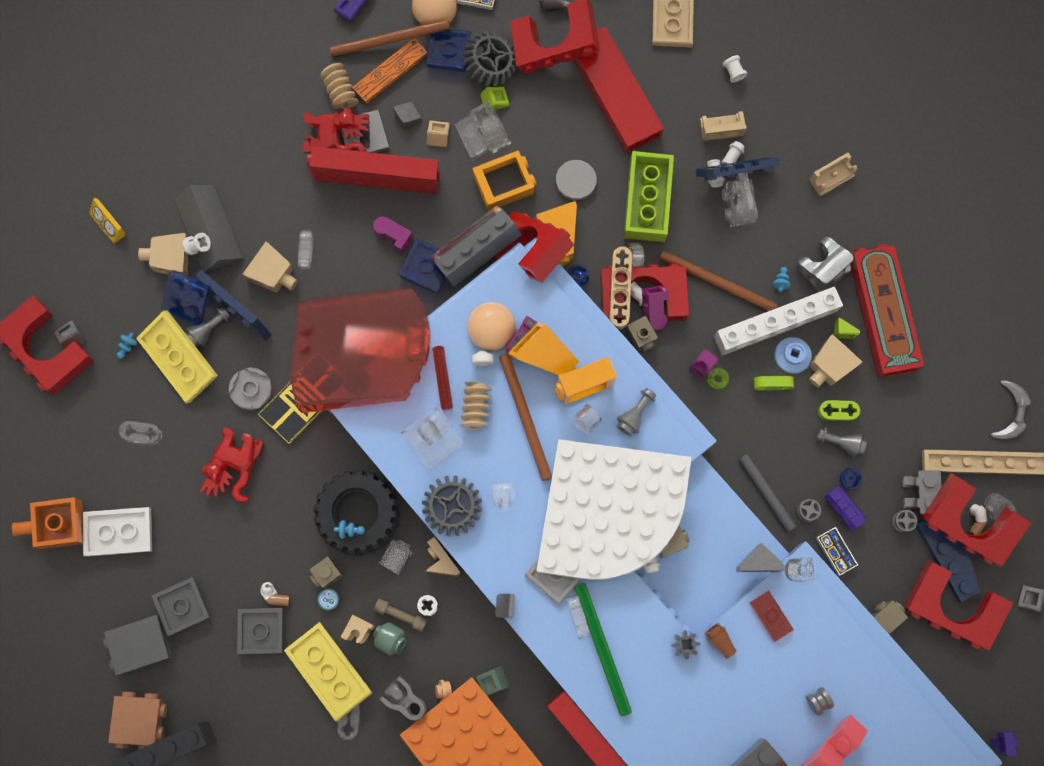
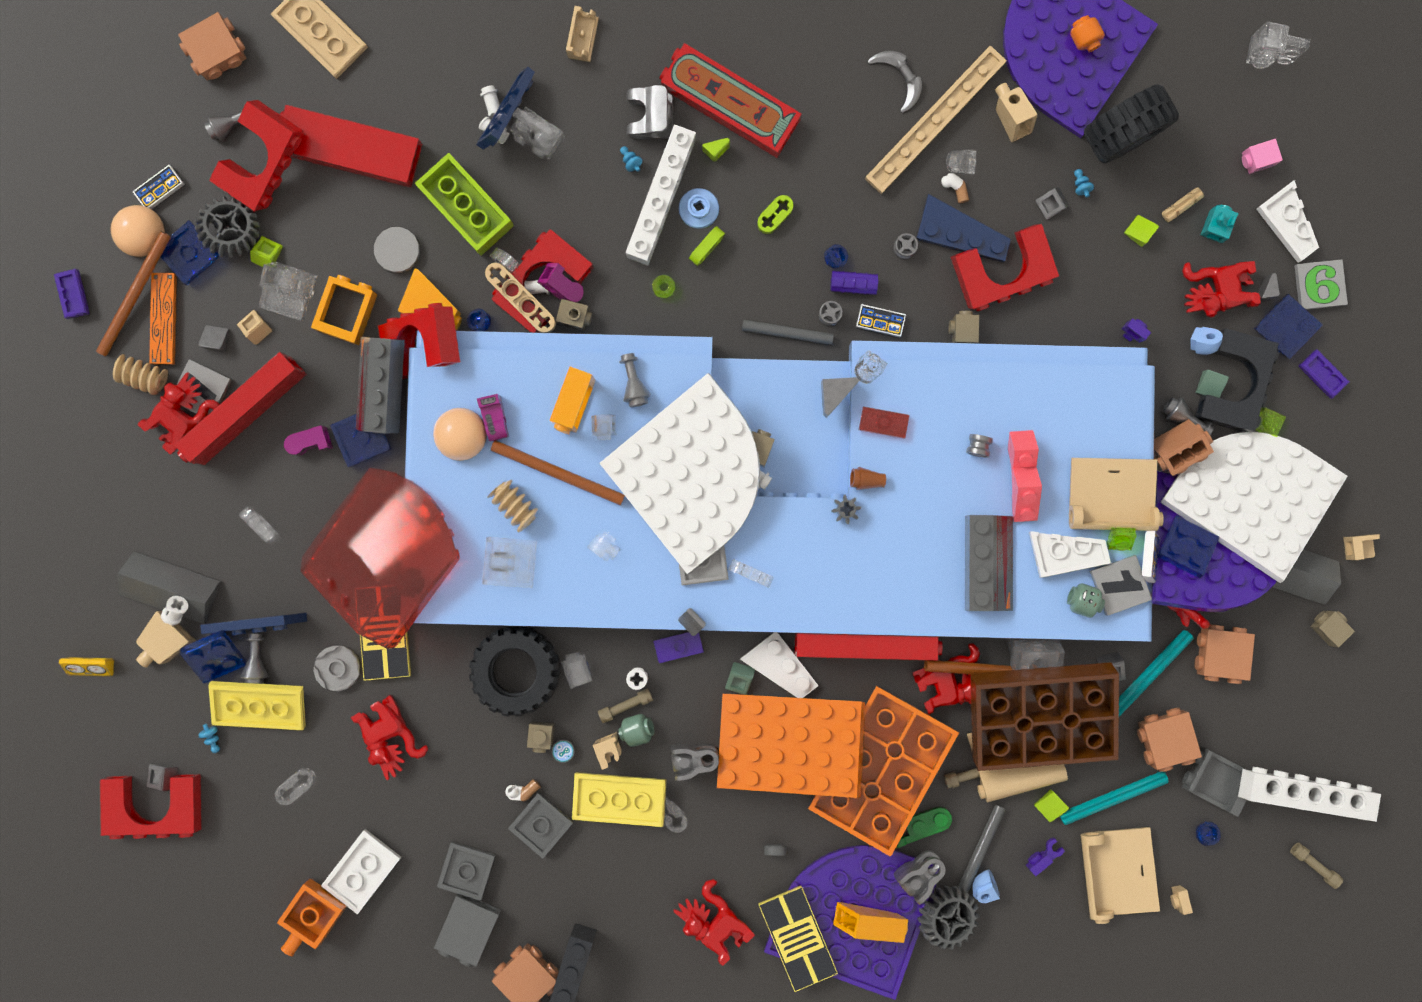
camera: 40 degrees left, 10 degrees up
(270, 270) = (250, 568): tan torso -> none
(350, 529) = (524, 690): dark azure hair -> none
(433, 497) = (557, 602): dark grey gear -> none
(442, 378) = (467, 510): clear red axle -> none
(442, 690) = (712, 723): light nougat plate -> none
(444, 565) = (617, 636): tan slope -> none
(476, 615) = (678, 646): none -> dark purple plate
(482, 358) = (480, 465): white tile -> none
(529, 701) = (780, 665): none -> white wing
(544, 350) = (519, 411): light orange slope -> none
(603, 650) = (792, 576): green axle -> none
(703, 364) = (642, 288): magenta leg -> none
(719, 282) = (586, 212): dark orange piece -> none
(722, 126) = (459, 86): tan hinge -> none
(734, 68) = (419, 29): white bush -> none
(832, 362) = (733, 183): tan torso -> none
(851, 444) = (809, 230): flat silver piece -> none
(928, 487) = (902, 205): flat silver plate -> none
(994, 544) = (984, 196): red arch -> none

